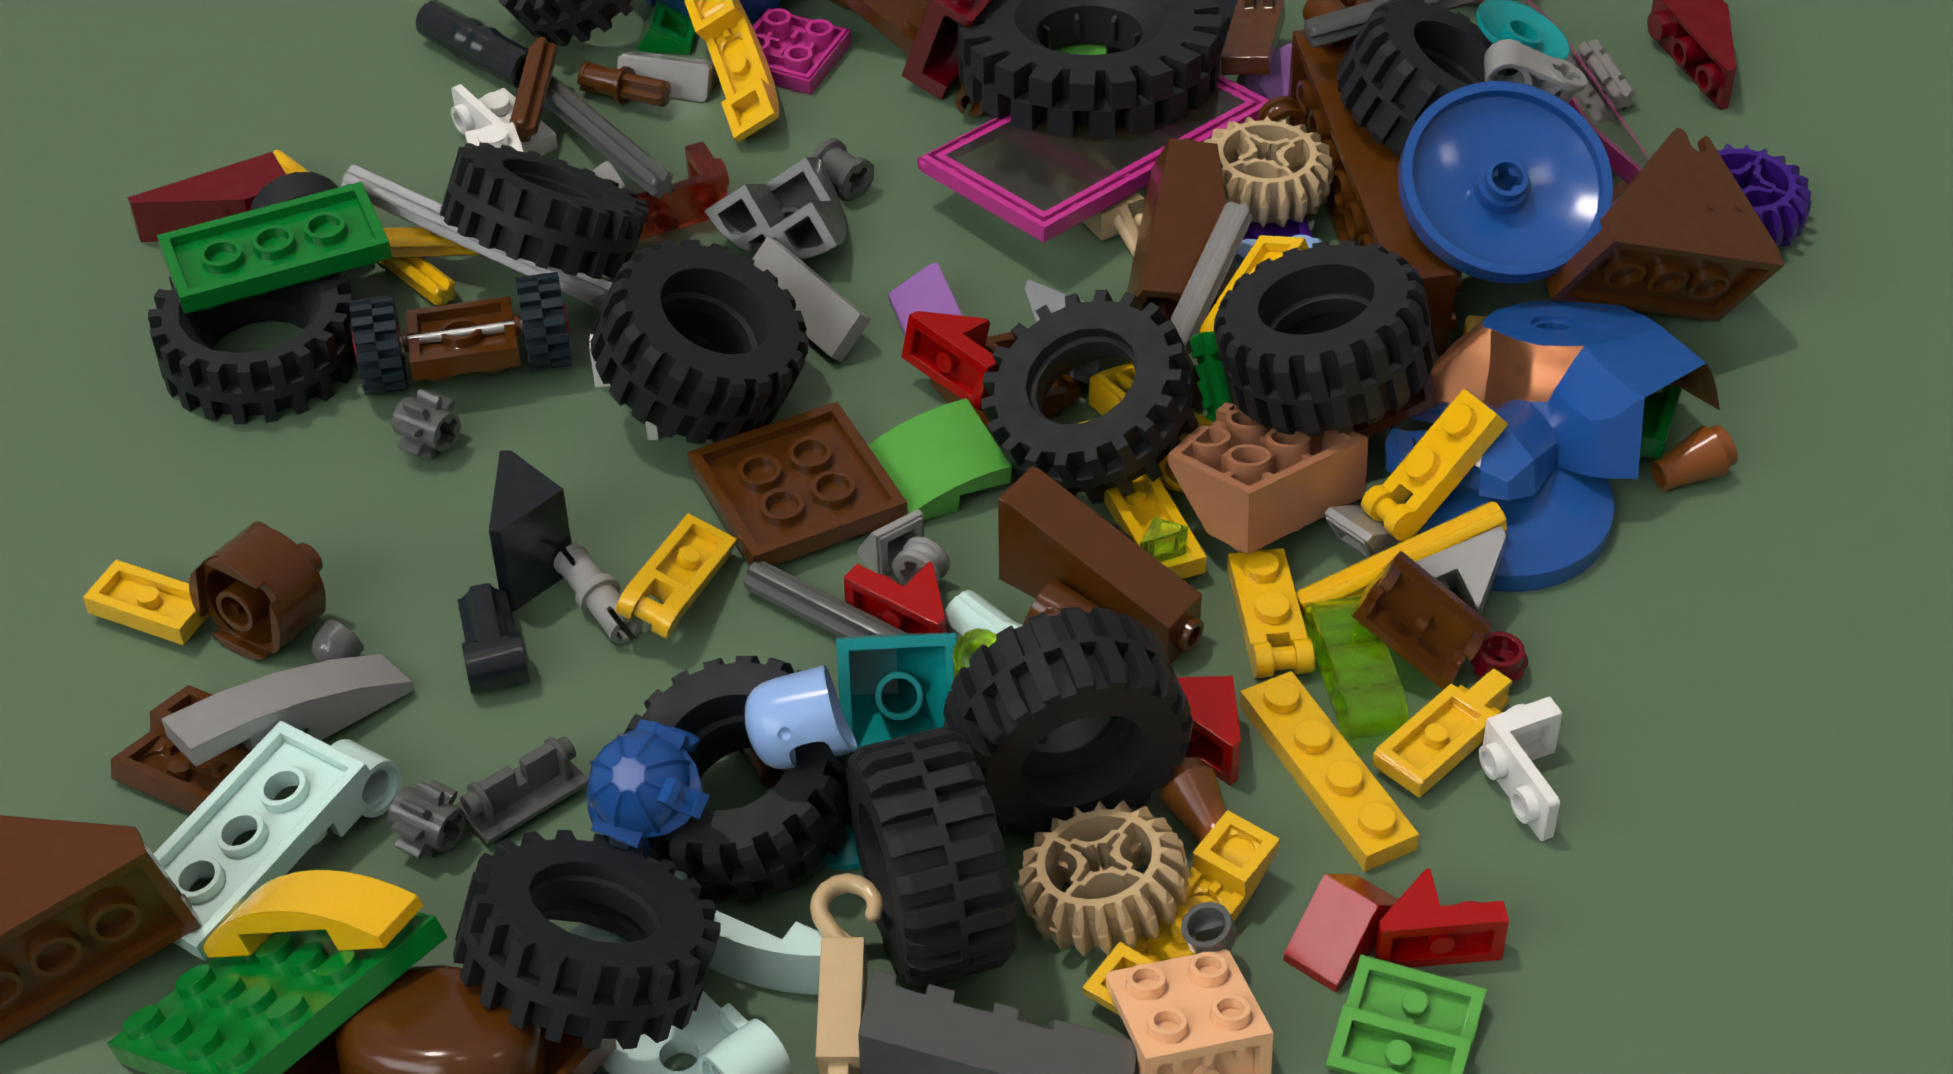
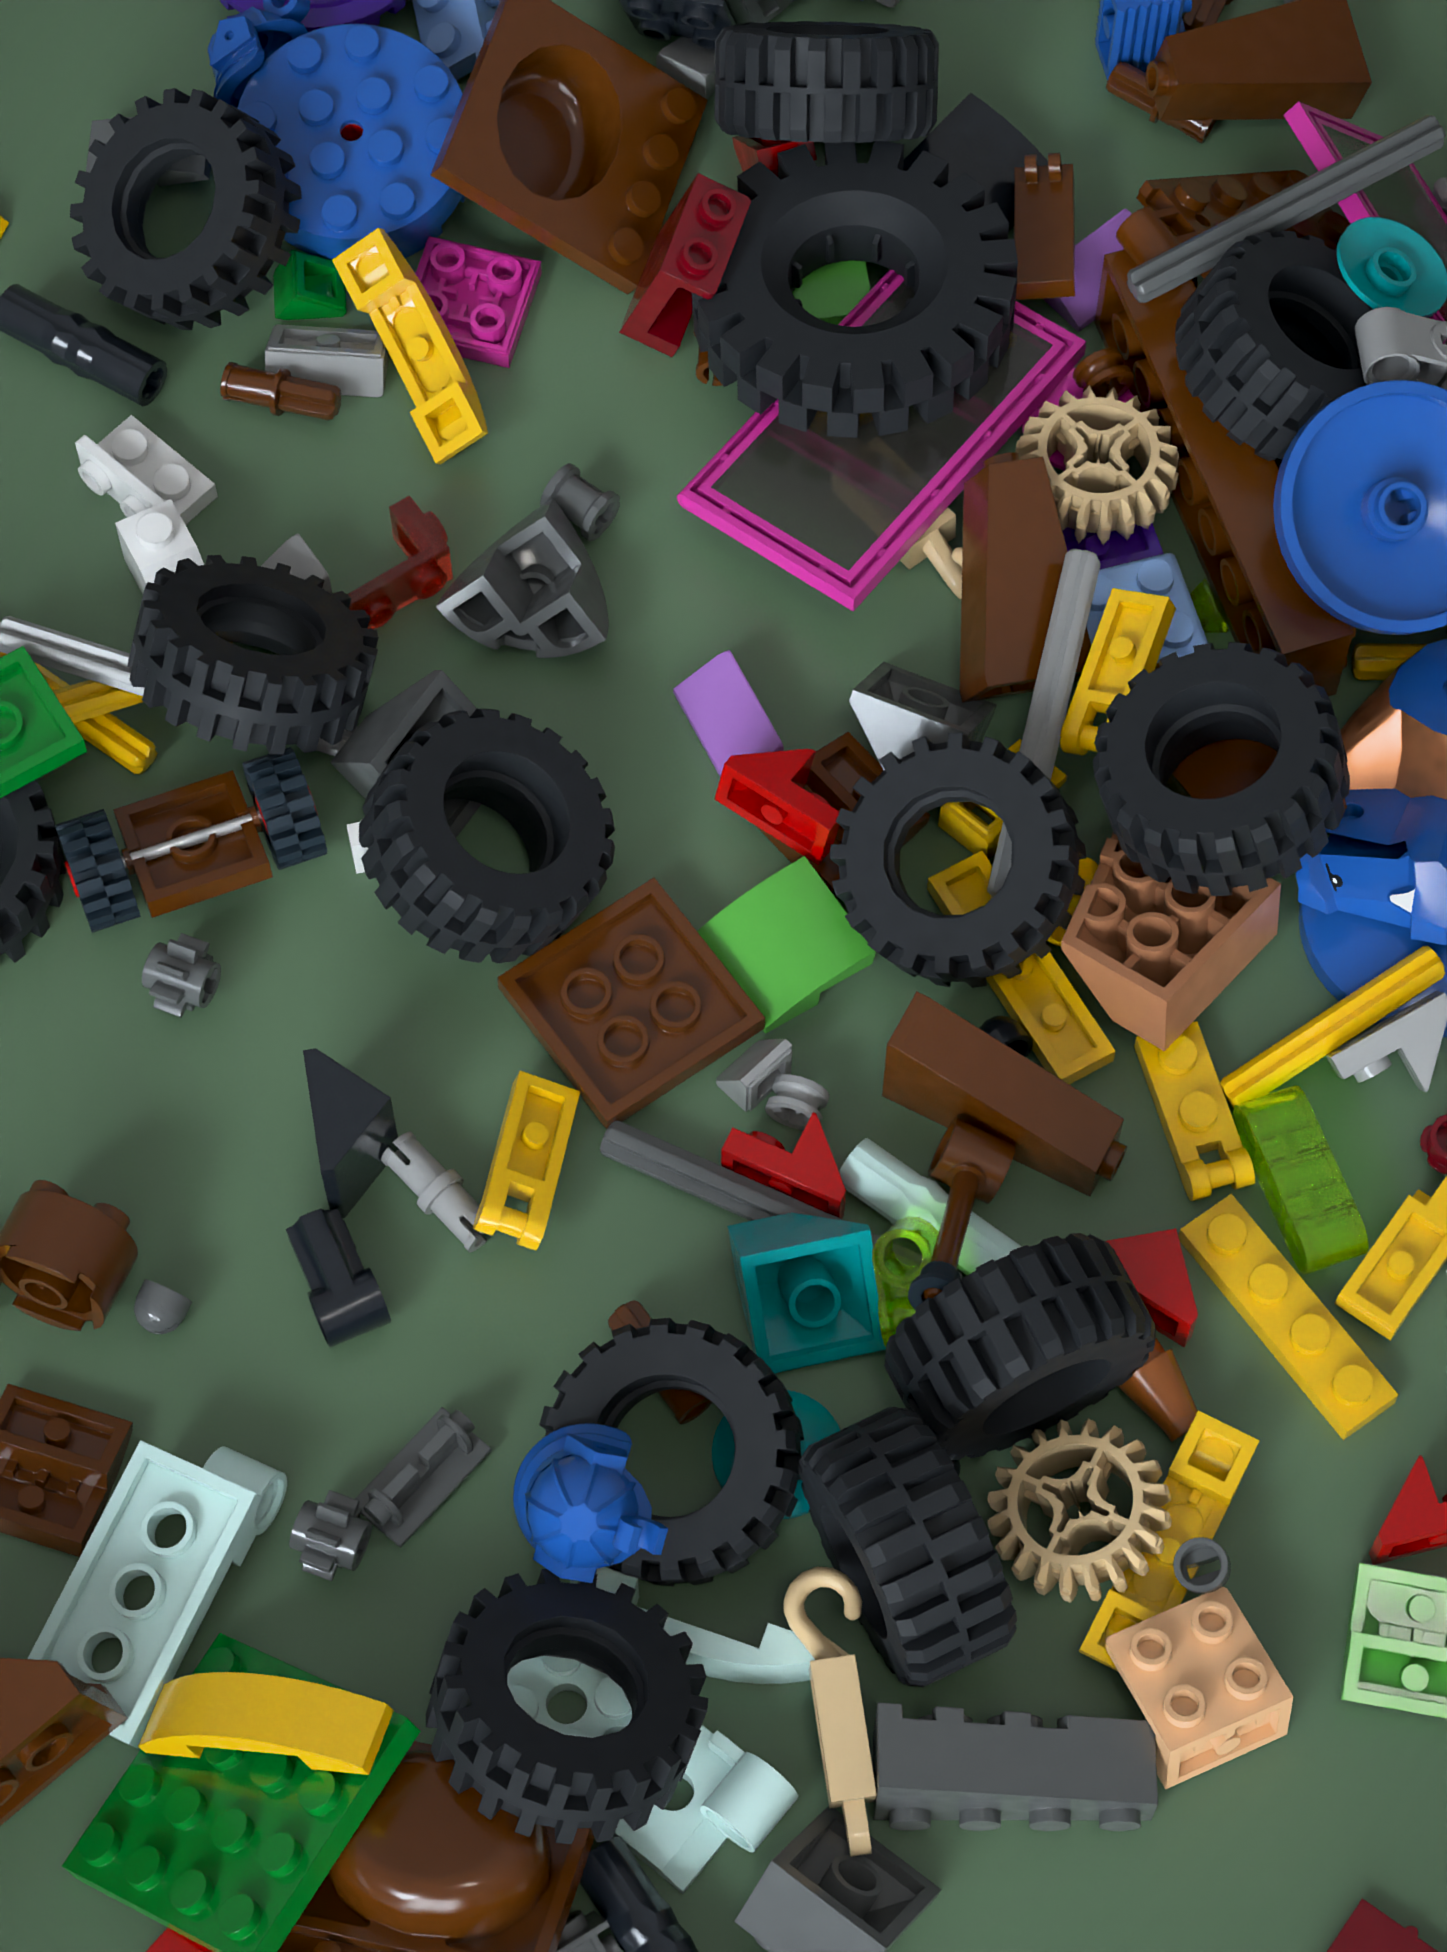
camera: 10 degrees left, 20 degrees up
(310, 697) = (139, 1402): light grey slope -> none
(533, 88) = (177, 428): reddish brown axle -> none
(609, 140) = (279, 492): dark grey axle -> none
(794, 713) = (744, 1421): light blue helmet -> none
(828, 316) = (588, 721): light grey tile -> none
(1165, 539) = (1068, 1045): clear neon green piece -> none
(1211, 372) = (1083, 795): green axle -> none
(1337, 928) = (1335, 1524): slope -> none
(1359, 530) = (1284, 981): light grey slope -> none
(1421, 620) = (1368, 1122): reddish brown hinge -> none
(1434, 466) = (1360, 910): yellow plate -> none

